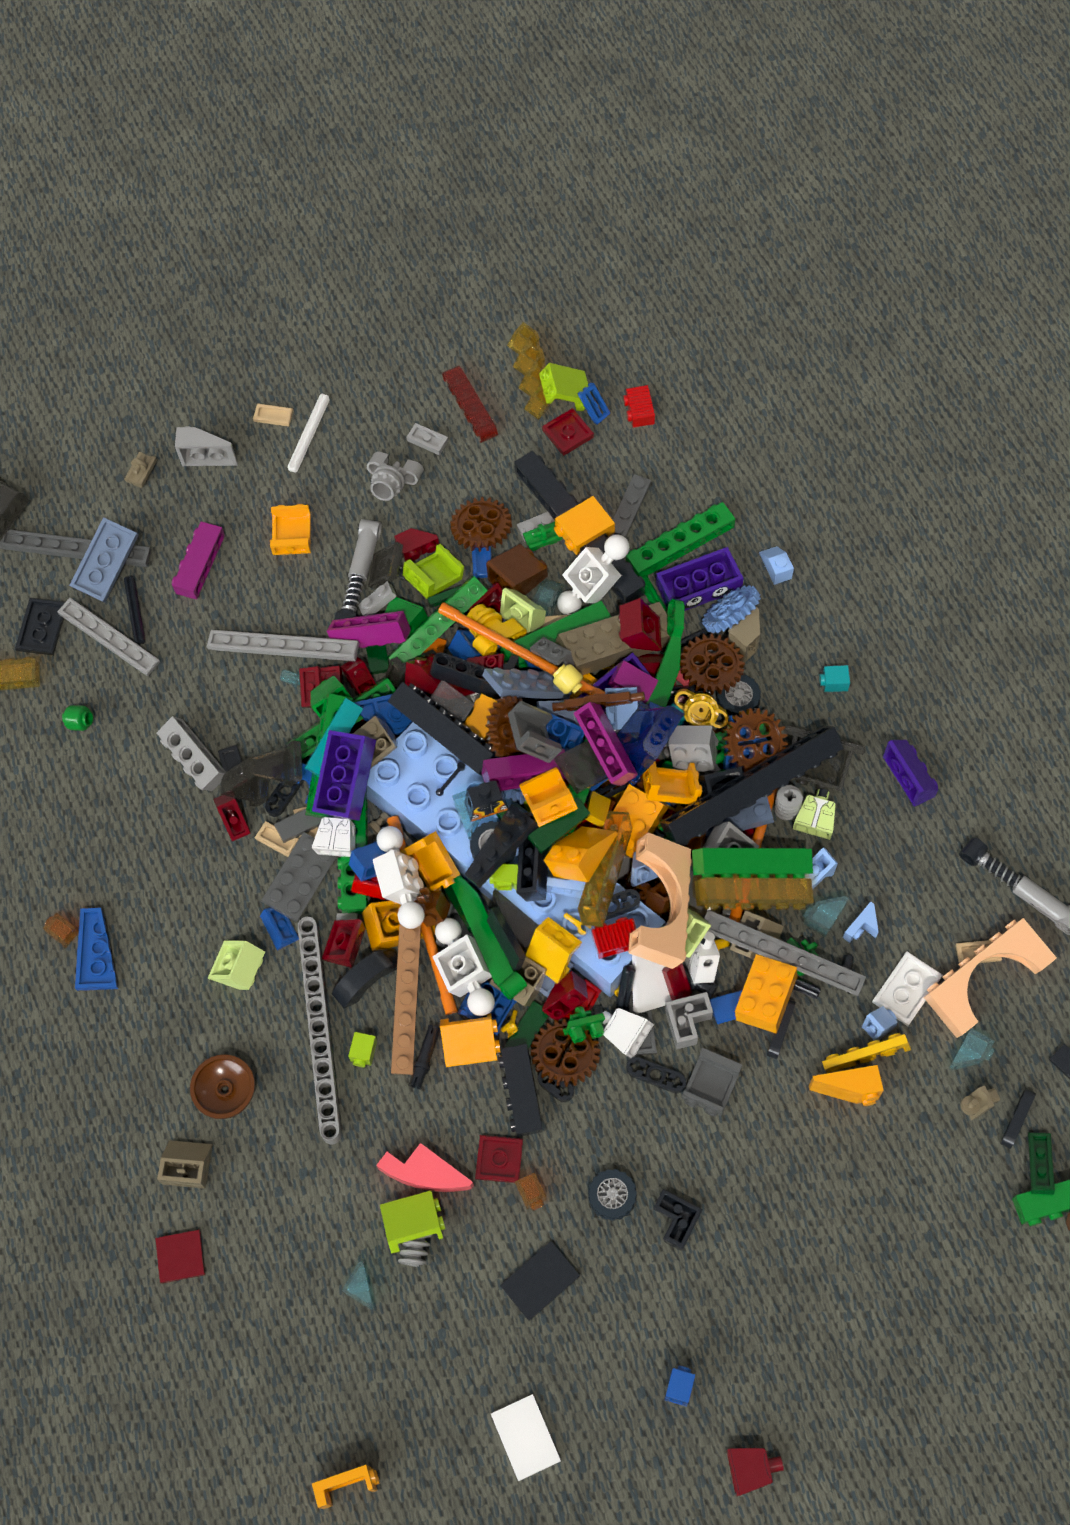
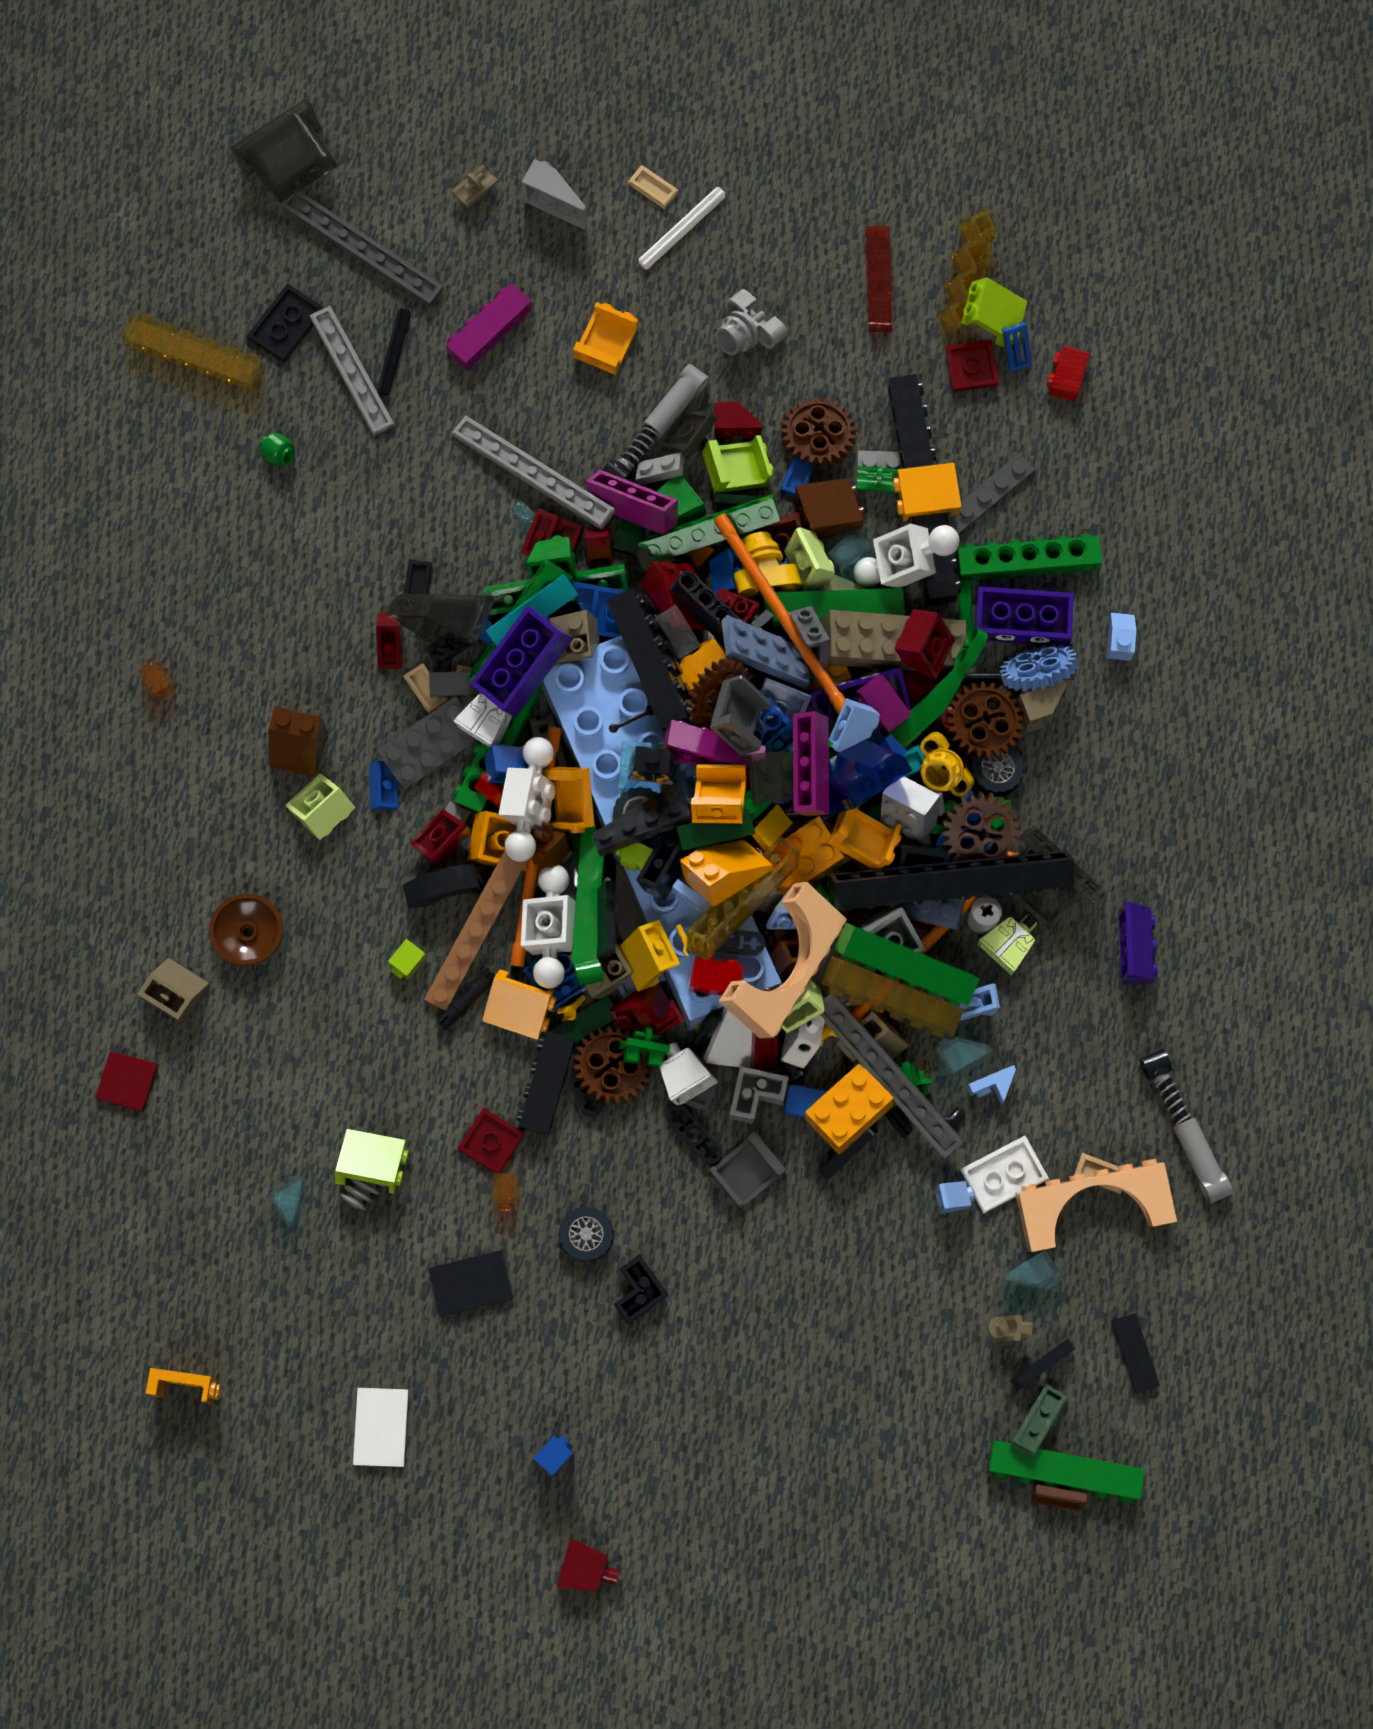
camera: 20 degrees right, 10 degrees up
(94, 956) = (179, 724): blue wing -> none
(104, 560) = (386, 278): sand blue plate -> none
(194, 922) = (296, 741): none -> reddish brown slope
(213, 772) = (393, 581): light grey brick -> none
(319, 1038) = (373, 928): light grey beam -> none
(425, 1172) = (408, 1117): coral slope -> none
(427, 439) = (810, 299): light grey plate -> none
(567, 679) = (811, 669): light yellow head -> none
(606, 700) = (830, 711): reddish brown piece -> none
(835, 678) = (1113, 800): teal brick -> none
(851, 1085) = (889, 1247): light orange slope -> none
(886, 1048) = (932, 1220): yellow wing -> none

